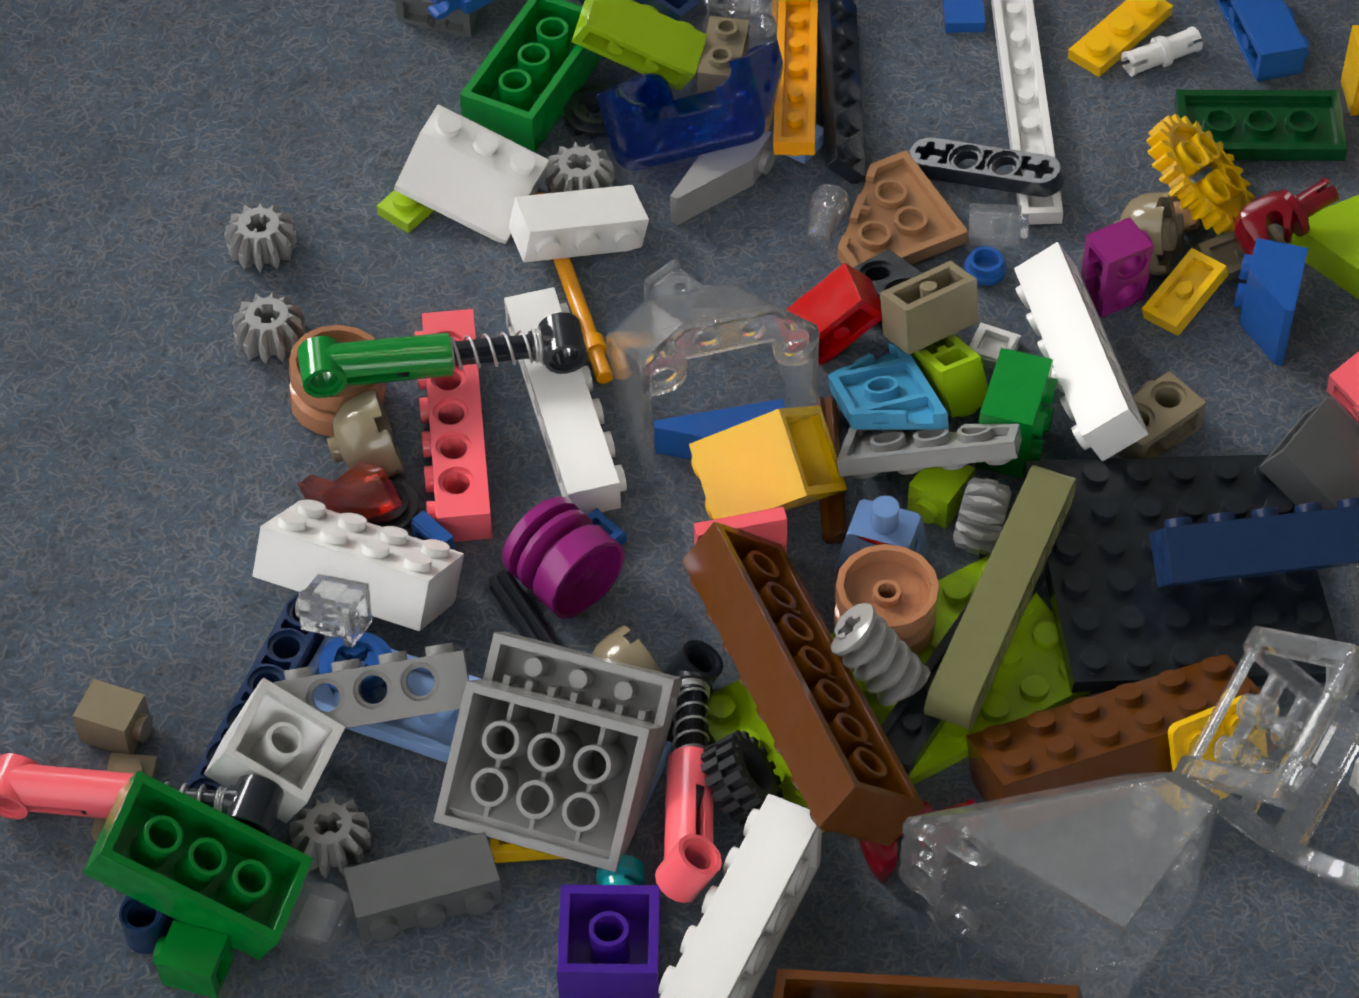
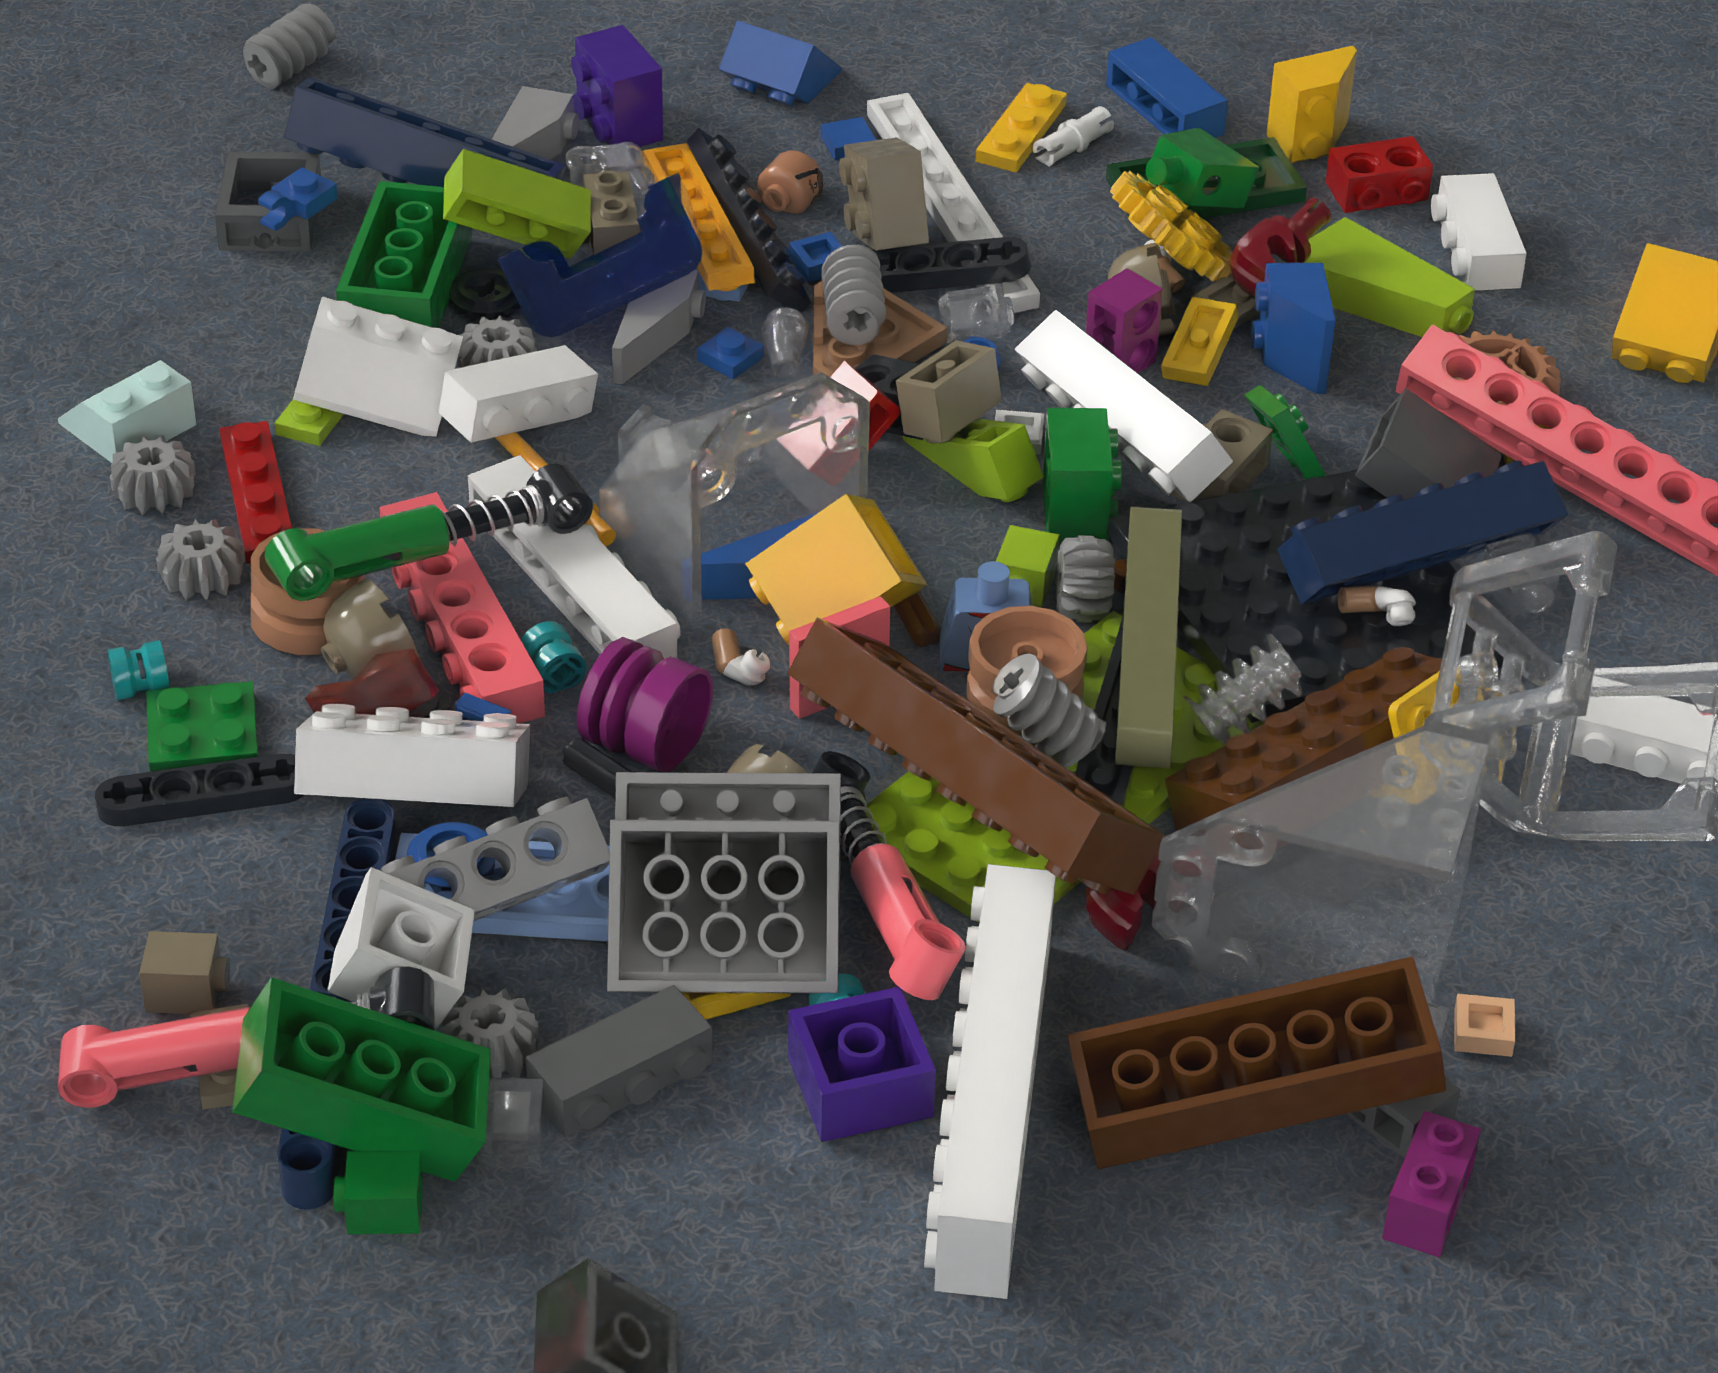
camera: 20 degrees left, 10 degrees down
(183, 422) = (126, 671): none -> teal wheel
(193, 554) = (202, 786): none -> black beam
(216, 486) = (201, 725): none -> green plate
(268, 173) = (145, 404): none -> light aqua slope
(335, 608) = (410, 798): clear brick -> none
(341, 264) = (254, 483): none -> red plate
(513, 486) = (554, 656): none -> teal wheel
(661, 524) = (729, 662): none -> arm
(739, 774) = (940, 864): black tyre -> none
(777, 214) = (730, 353): none -> blue plate
(871, 453) = (1005, 519): light grey wing -> none
(887, 394) = (936, 485): dark azure wing -> none
(889, 133) = (811, 253): none -> blue plate
(891, 186) = (853, 294): none -> light grey piece
(892, 52) = (790, 182): none -> nougat head
(956, 88) = (884, 193): none -> dark tan brick
(1064, 674) = (1247, 691): none -> clear piece
(1220, 403) = (1287, 429): none -> green wing
(1227, 599) = (1376, 599): none -> arm
(1246, 119) = (1187, 162): none -> green torso

